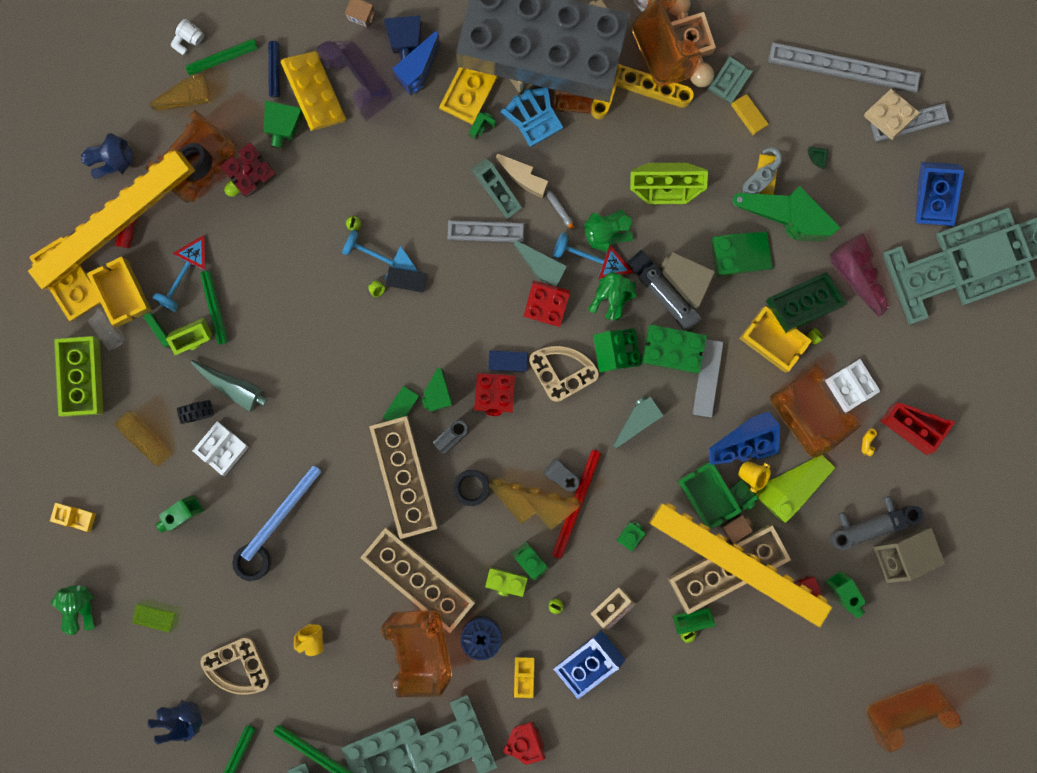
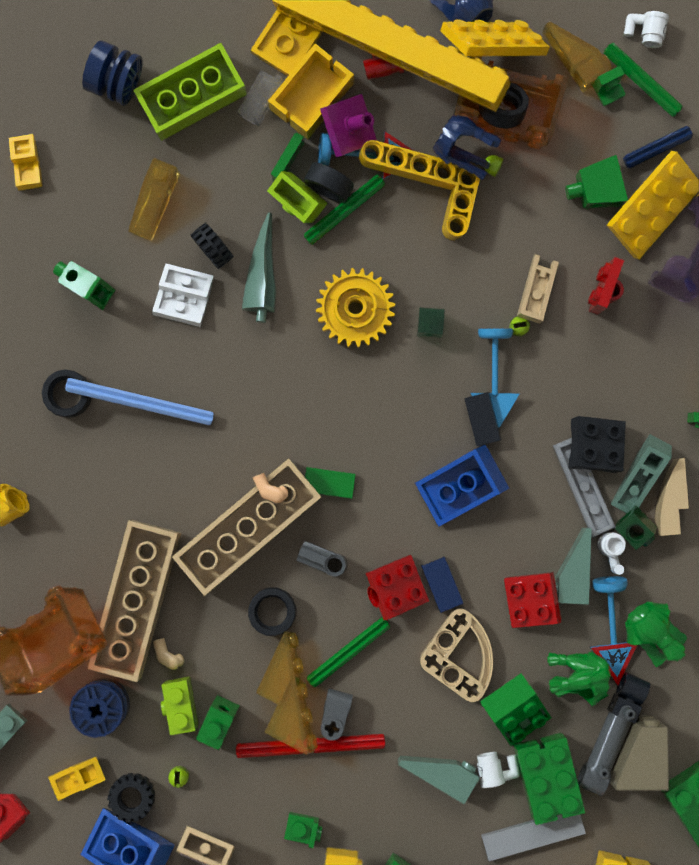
camera: 70 degrees right, 0 degrees up
(35, 429) = (112, 72): none -> dark blue wheel
(143, 147) = (494, 38): none -> yellow plate
(156, 276) = (348, 124): none -> magenta tile
(189, 309) = (329, 182): none -> black tyre
(208, 215) = (447, 150): none -> dark blue piece
(215, 83) = (608, 86): none -> green bracket
(219, 236) = (429, 176): none -> yellow beam
(248, 170) = (524, 173): dark red brick -> none
(273, 326) = (355, 326): none -> yellow gear
(321, 284) = (430, 322): none -> clear green brick
(334, 200) = (537, 291): none -> tan hinge
(347, 147) = (608, 281): none -> red plate
(376, 288) = (455, 389): lime hinge -> none
(386, 450) = (269, 492): none -> light nougat arm
(437, 393) = (365, 520): green slope -> none
(445, 315) = (462, 485): none -> blue slope
(460, 208) = (597, 444): none -> black brick
(468, 577) = (165, 657): none -> tan arm
(522, 206) = (632, 518): none -> dark green brick
(524, 448) = (348, 652): none -> green axle
(535, 232) = (612, 545): none -> white piece
(554, 657) = (123, 811): none -> black tyre
(560, 209) = (652, 562): light grey piece -> none
(651, 387) = (491, 770): none -> white piece

